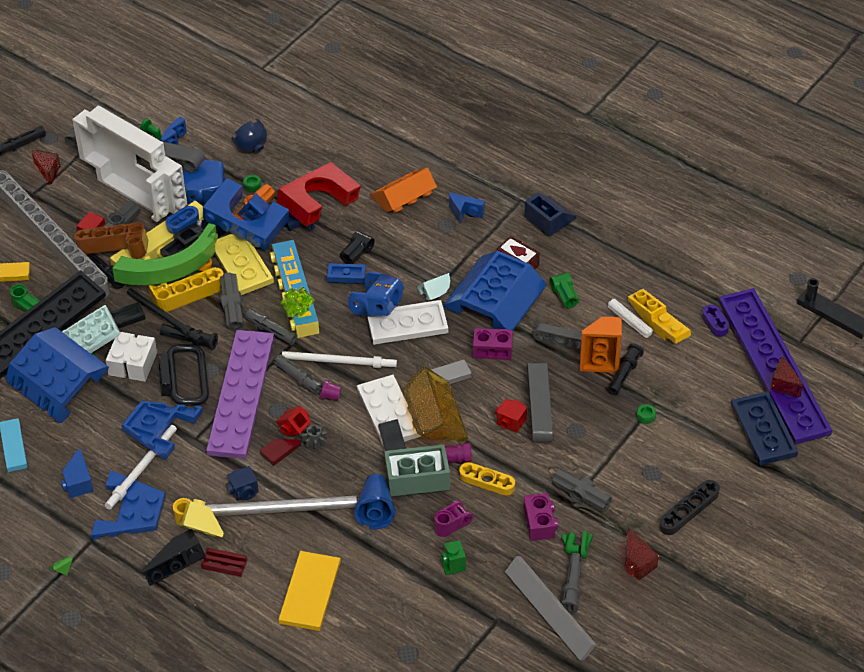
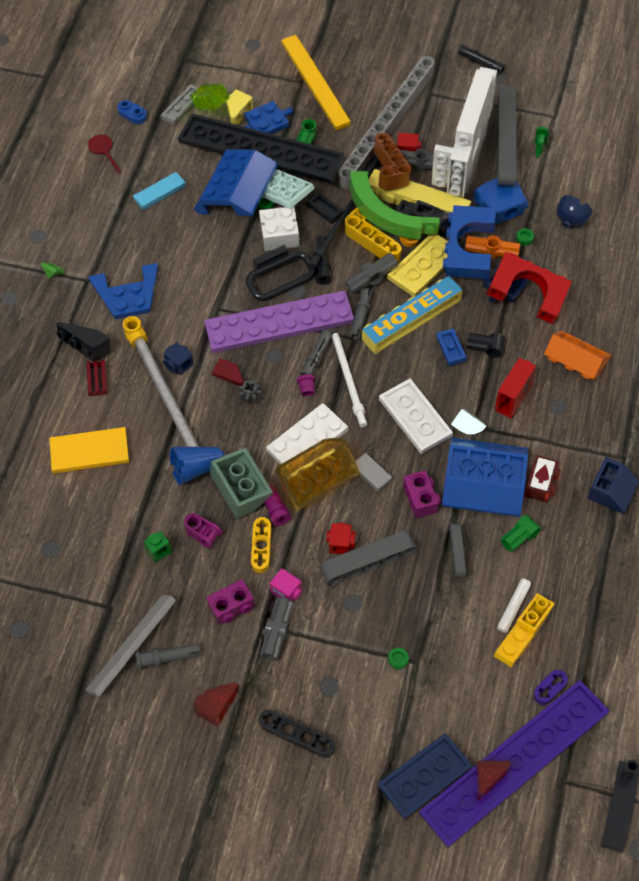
camera: 70 degrees right, 10 degrees up
(47, 164) = (460, 88): clear red slope -> none
(76, 476) = (142, 243): blue slope -> none
(120, 491) = (133, 277): white bar -> none
(152, 419) = (216, 269): blue wing -> none
(174, 131) = (540, 156): blue slope -> none
(182, 219) = (440, 199): blue plate -> none
(201, 519) = (121, 342): light yellow slope -> none
(253, 209) = (476, 243): blue slope -> none
(294, 421) = (257, 369): red brick -> none
(297, 301) = (377, 322): clear neon green brick -> none
(380, 296) = (425, 380): blue piece -> none
(391, 435) = (269, 452): black tile -> none
(421, 239) = (515, 388): none -> red brick
(467, 205) = (582, 408): blue slope -> none
(541, 469) = (286, 586): none -> dark pink brick
(570, 547) = (215, 652): green piece -> none
(601, 345) = (448, 586): orange slope -> none
(628, 363) = (453, 621): black pin -> none

